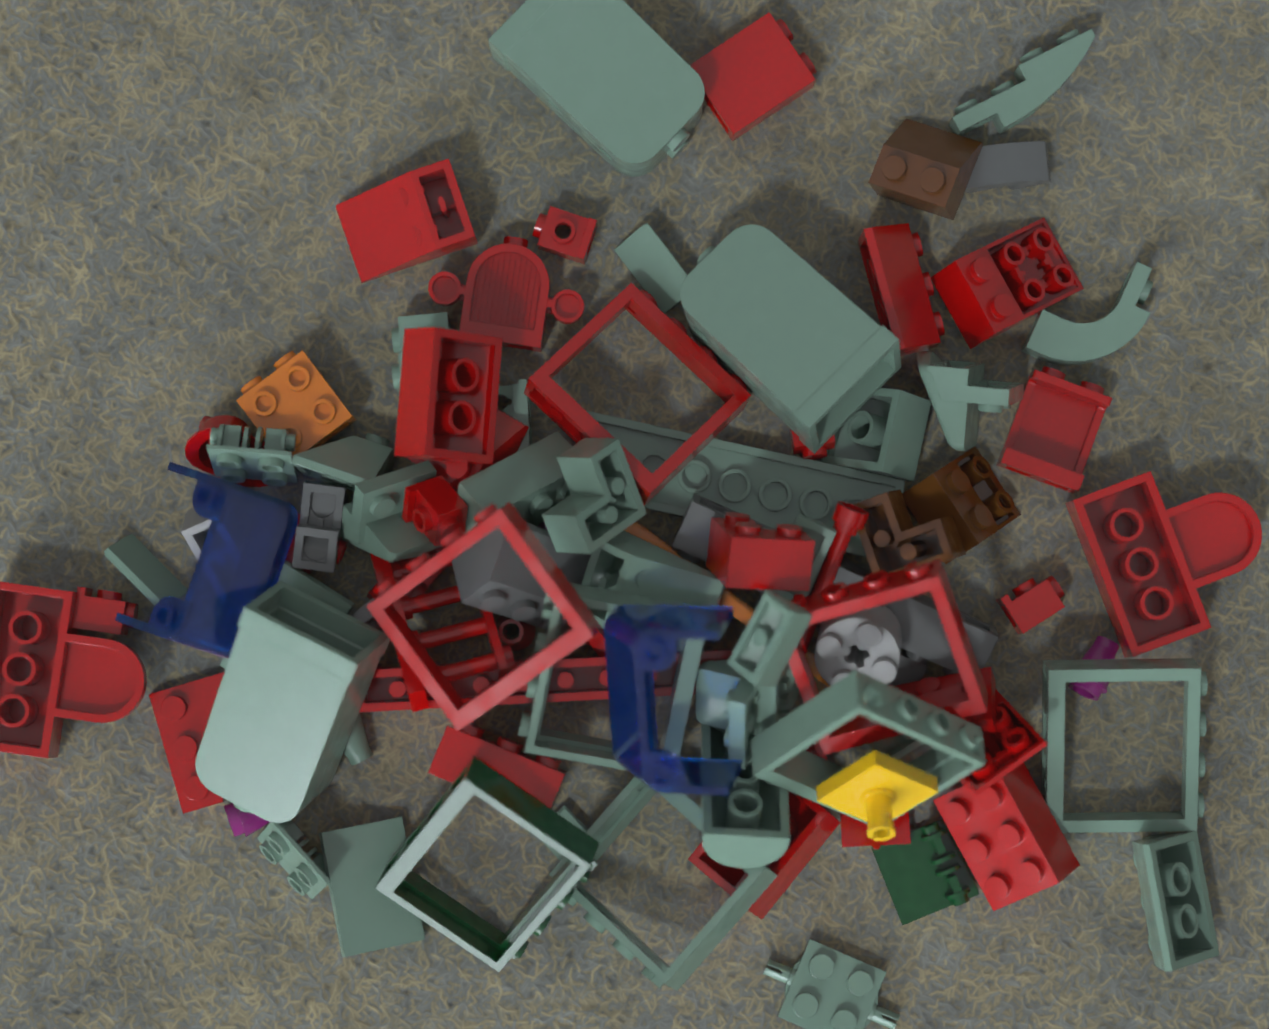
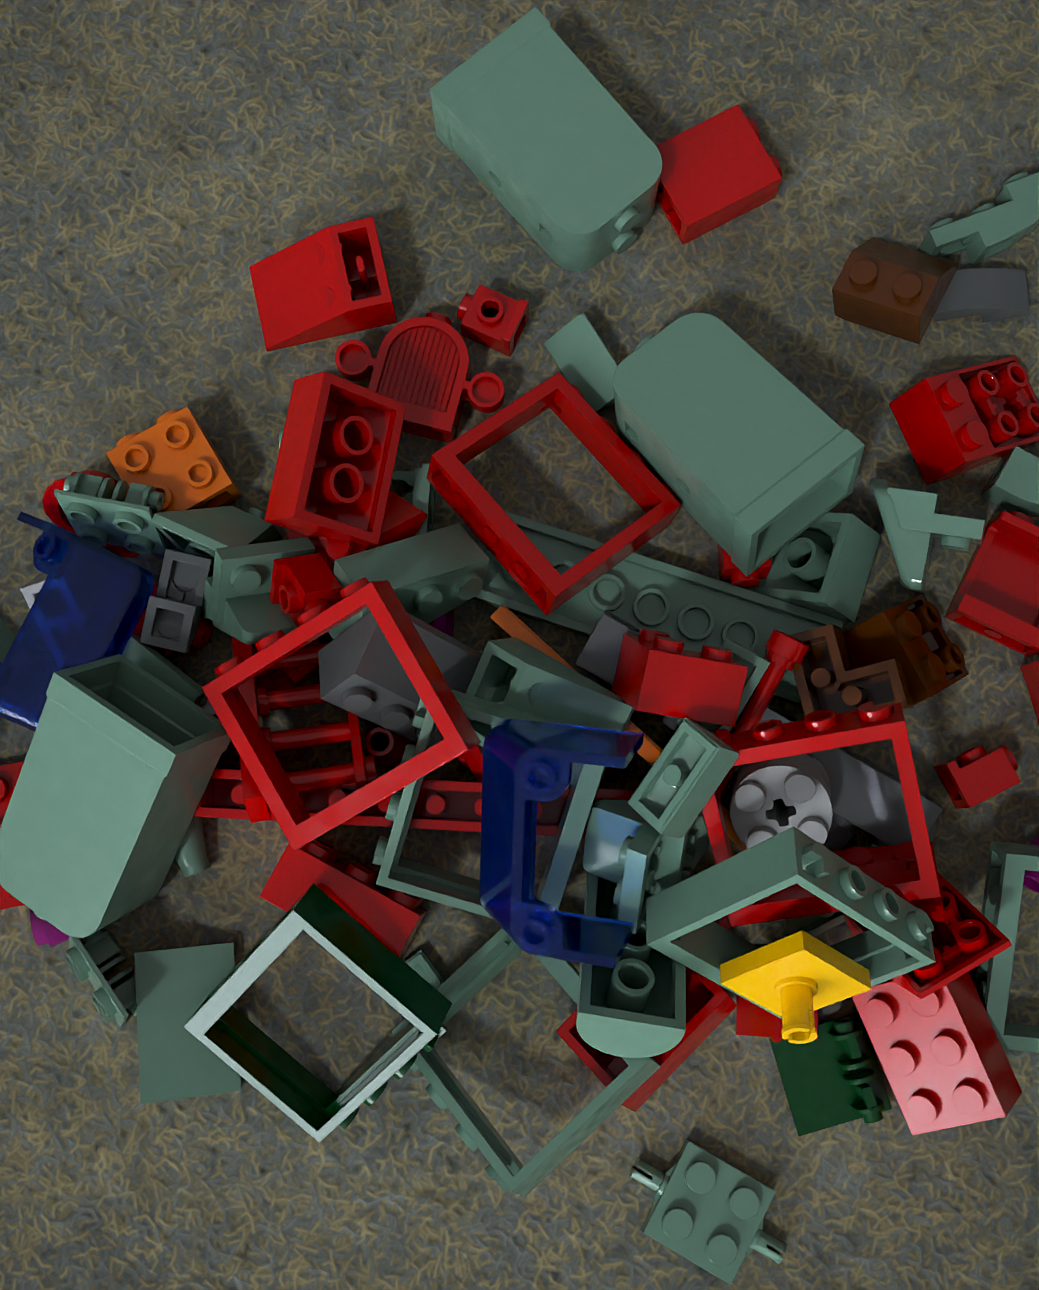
camera: 10 degrees right, 5 degrees down
(600, 498) = (499, 593): sand green brick -> none
(900, 286) = (851, 393): red slope -> none

